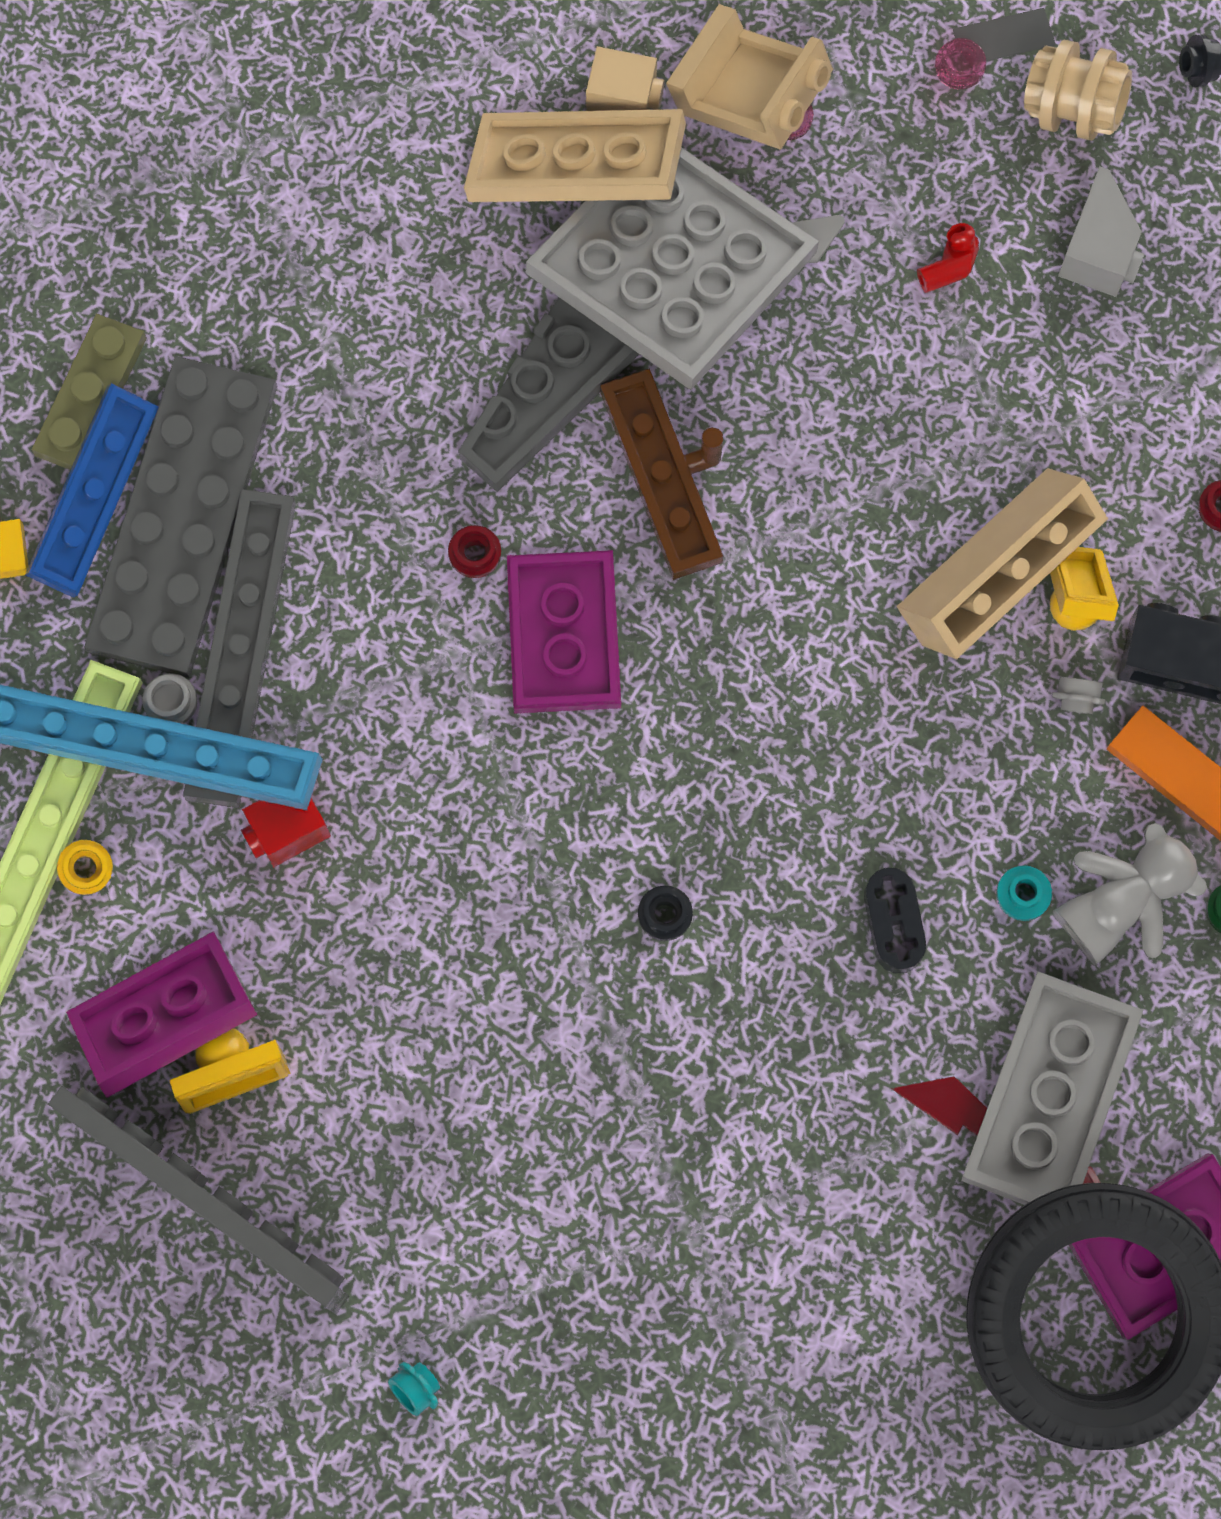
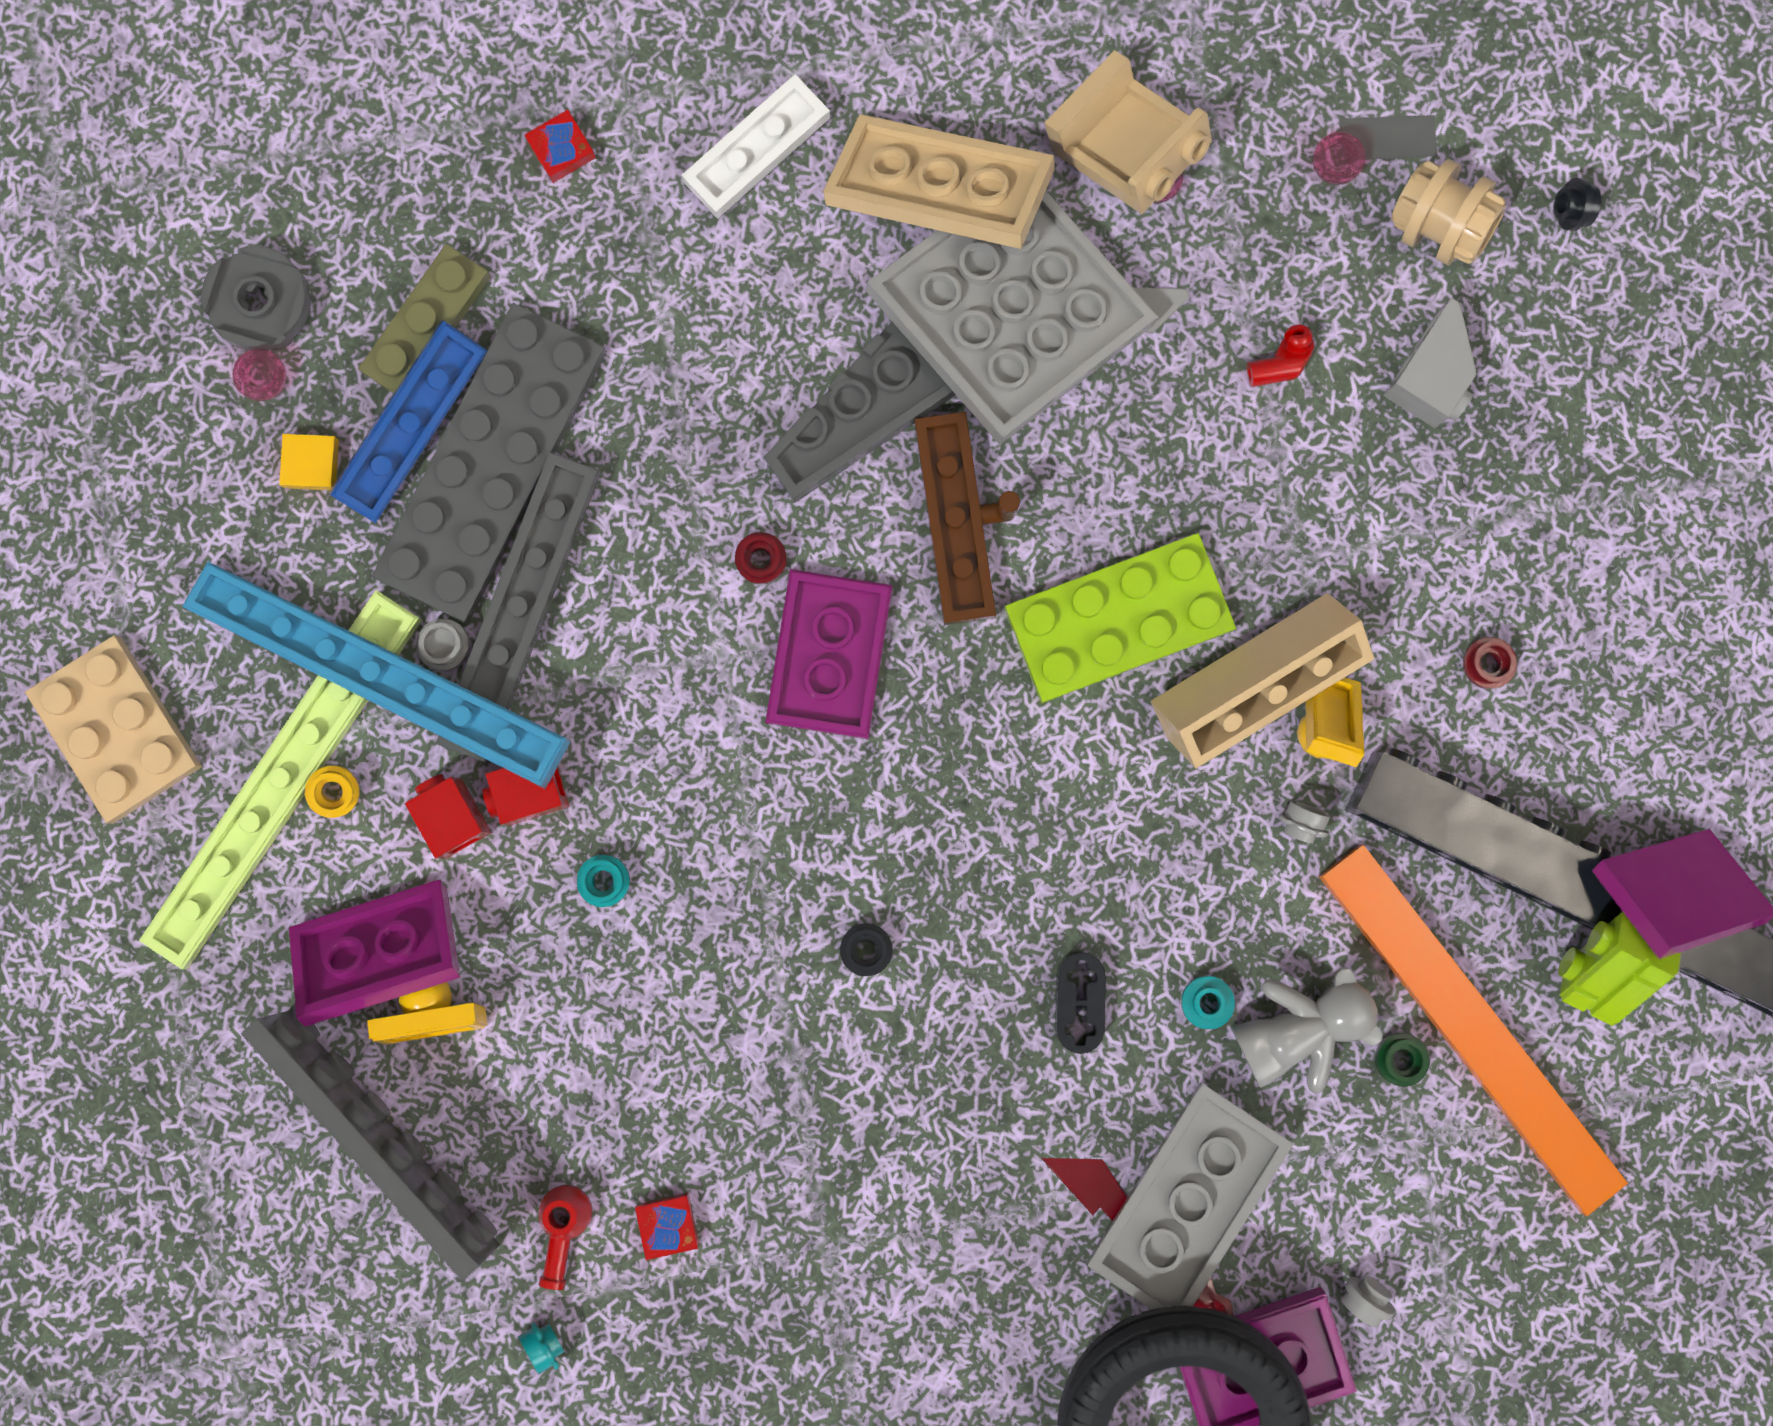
camera: 10 degrees right, 10 degrees up
(191, 201) = (560, 146): none -> red tile
(209, 865) = (447, 816): none -> red brick
(369, 888) = (586, 880): none -> teal plate
(386, 163) = (756, 146): none -> white plate
(411, 1265) = (580, 1212): none -> red bar
(520, 1236) = (667, 1226): none -> red tile
(623, 82) = (1002, 113): tan brick -> none
(847, 538) = (1119, 618): none -> lime plate

